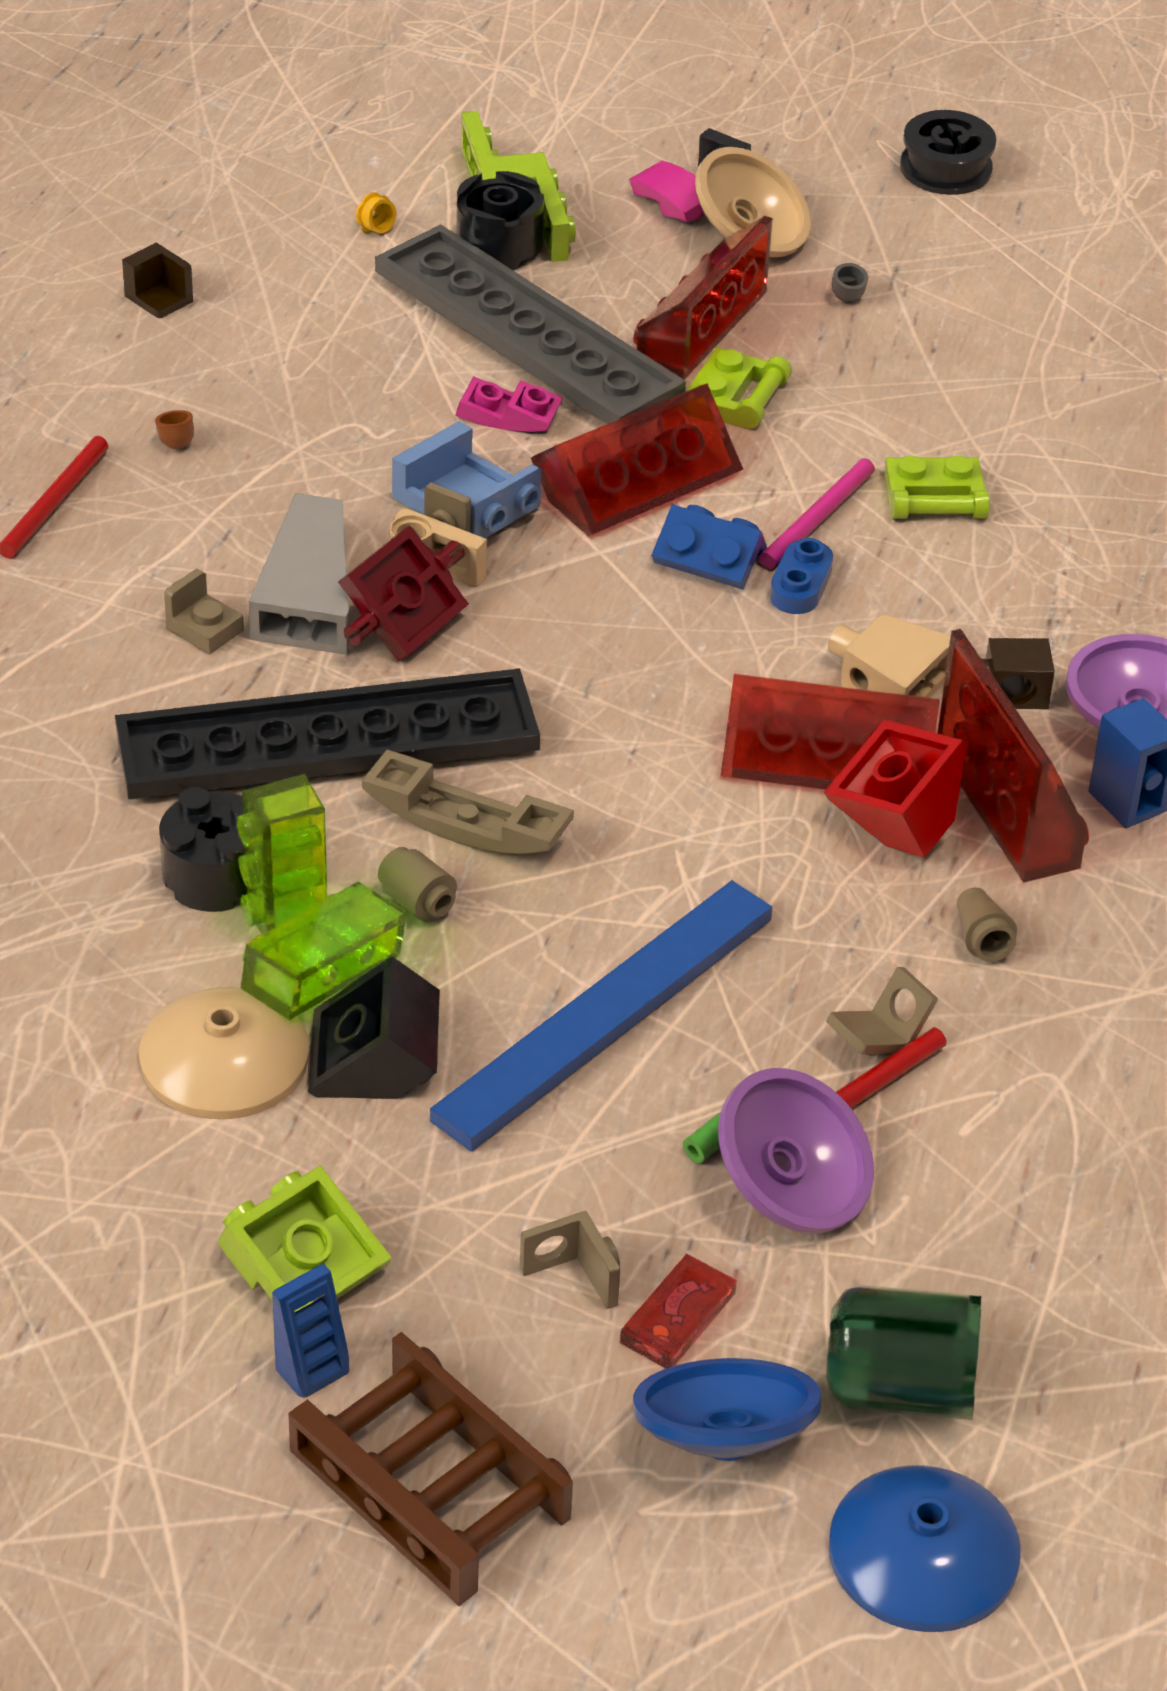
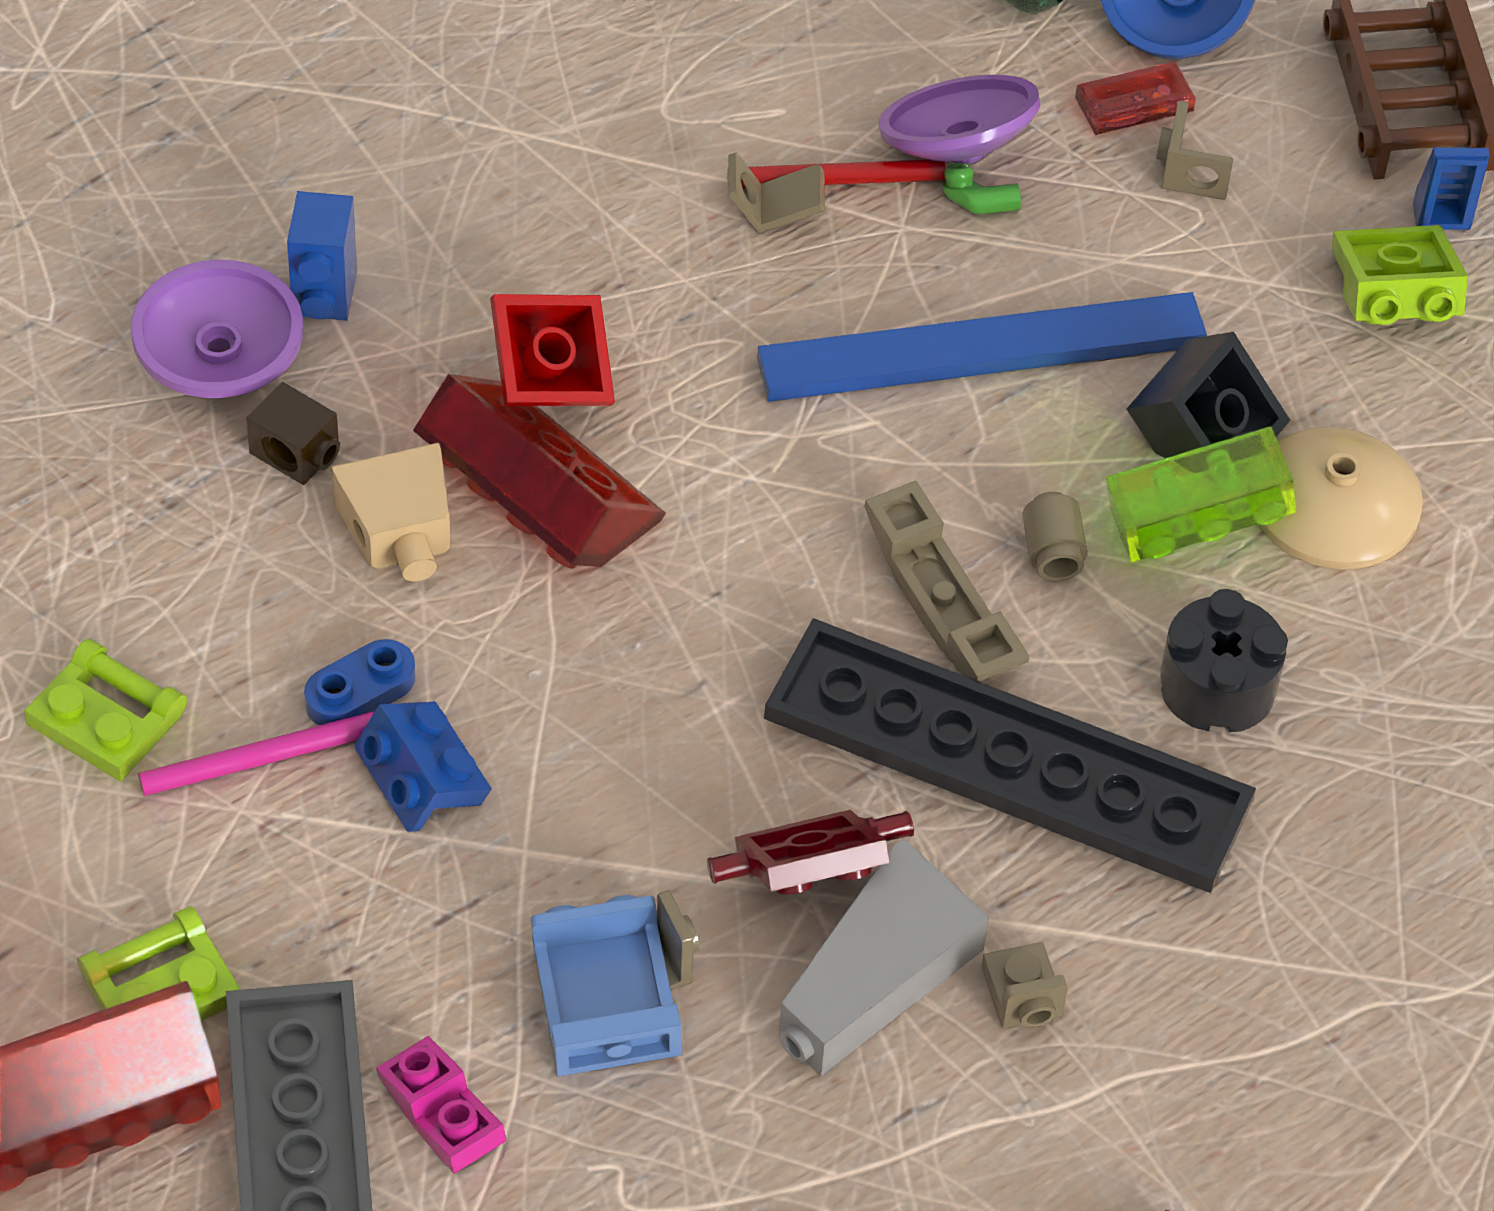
camera: 145 degrees left, 10 degrees up
(283, 851) = (1198, 540): clear neon green brick -> none
(438, 534) = (717, 918): tan plate -> none
(639, 461) = (387, 918): clear red slope -> none
(985, 926) = (595, 229): dark tan cone -> none
(1008, 771) = (440, 307): clear red slope -> none

